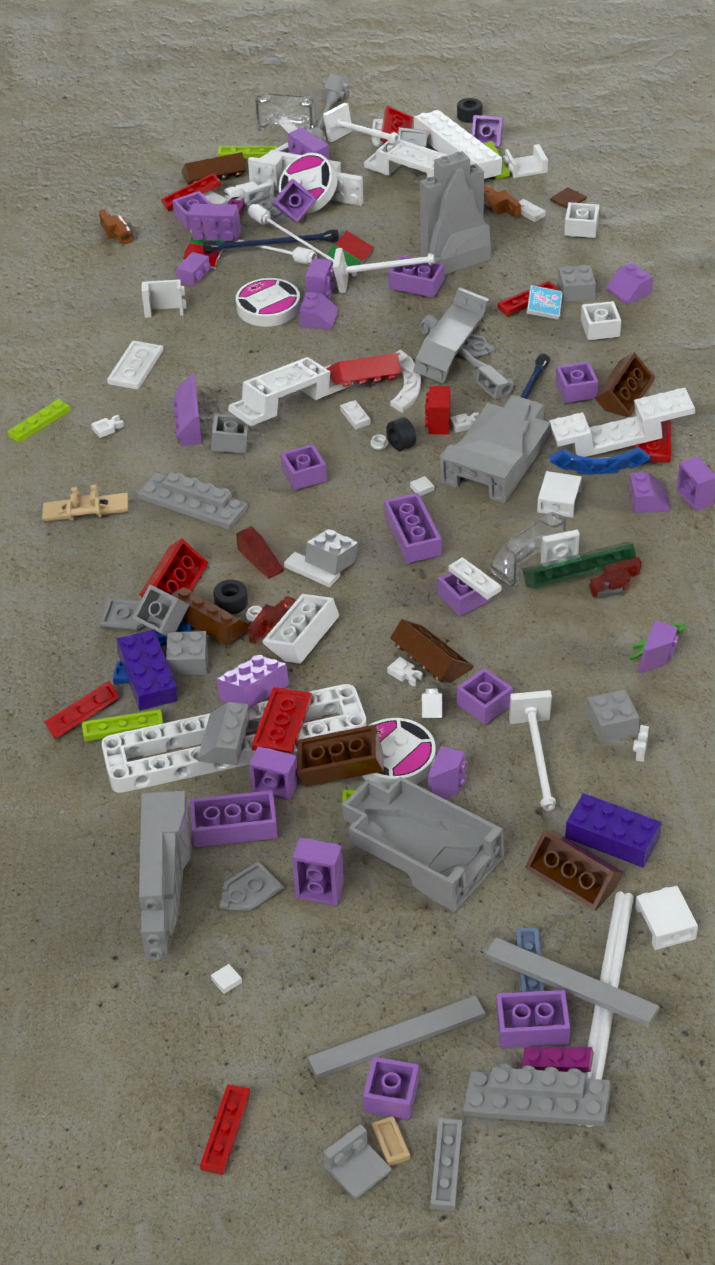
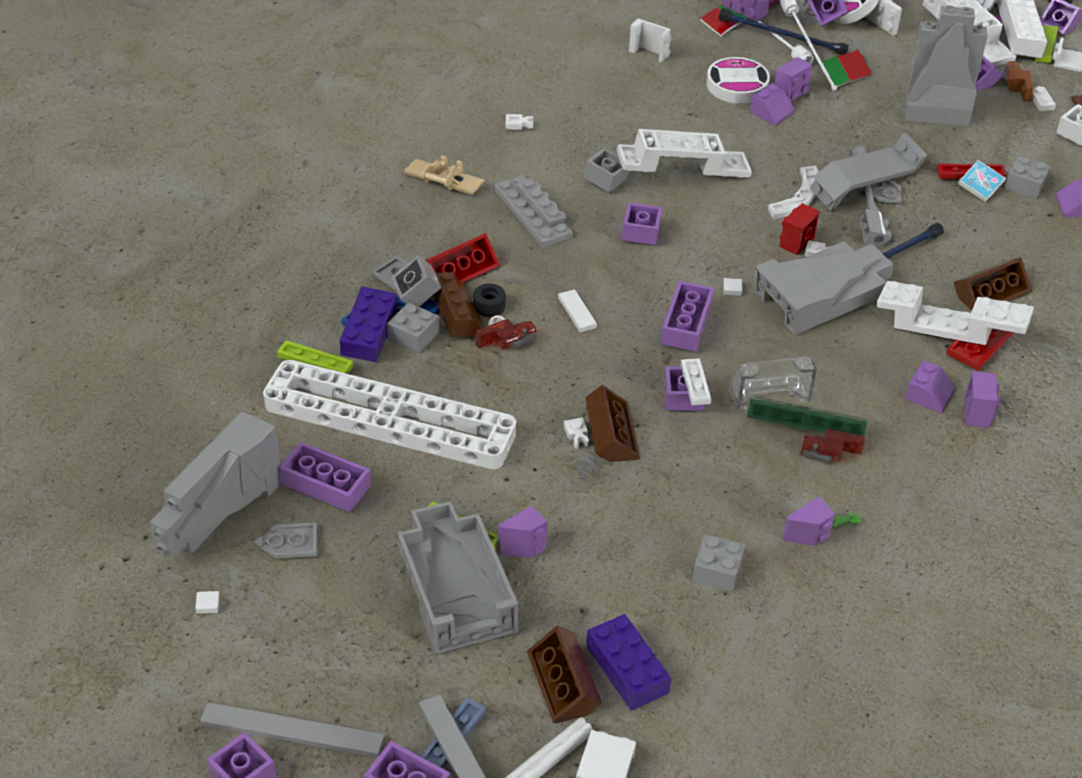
camera: 30 degrees right, 0 degrees up
(38, 421) = (471, 95): lime plate -> none
(81, 709) = (295, 330): red plate -> none
(135, 365) = (585, 84): white tile -> none
(187, 412) = (589, 139): medium lavender slope -> none
(193, 268) = (699, 28): medium lavender brick -> none
(225, 734) = (376, 406): light grey slope -> none
(225, 1129) = (93, 721): red plate -> none
(252, 680) = (438, 374): medium lavender brick -> none
(257, 551) = (544, 275): clear red slope -> none
(274, 772) = (388, 457): medium lavender brick -> none
(282, 720) = (428, 418): red plate -> none
(302, 627) = (521, 352): white slope -> none
(318, 871) = (343, 554): medium lavender brick -> none
(331, 551) = (601, 303): light grey brick -> none
(340, 755) = (449, 470): reddish brown slope -> none
(342, 271) = (820, 81): white tile -> none
(355, 414) = (729, 202): white plate -> none
(365, 369) = (765, 167): red slope -> none
(379, 442) = (728, 233): white plate -> none
(401, 434) = (750, 234): black tyre -> none
(406, 751) = (503, 490): brick -> none
(417, 278) = (883, 110): medium lavender brick -> none
(432, 703) = (571, 469): white slope -> none
(484, 696) = (620, 486): medium lavender brick -> none
(533, 708) = (645, 516): white tile -> none
(559, 493) = (844, 347): white panel -> none
(559, 545) = (800, 391): white tile -> none
(576, 382) = (948, 260): medium lavender brick -> none
(599, 465) = (905, 342): blue tile -> none
(600, 320) = (1019, 218): white brick -> none
(641, 744) = (721, 601): white plate -> none

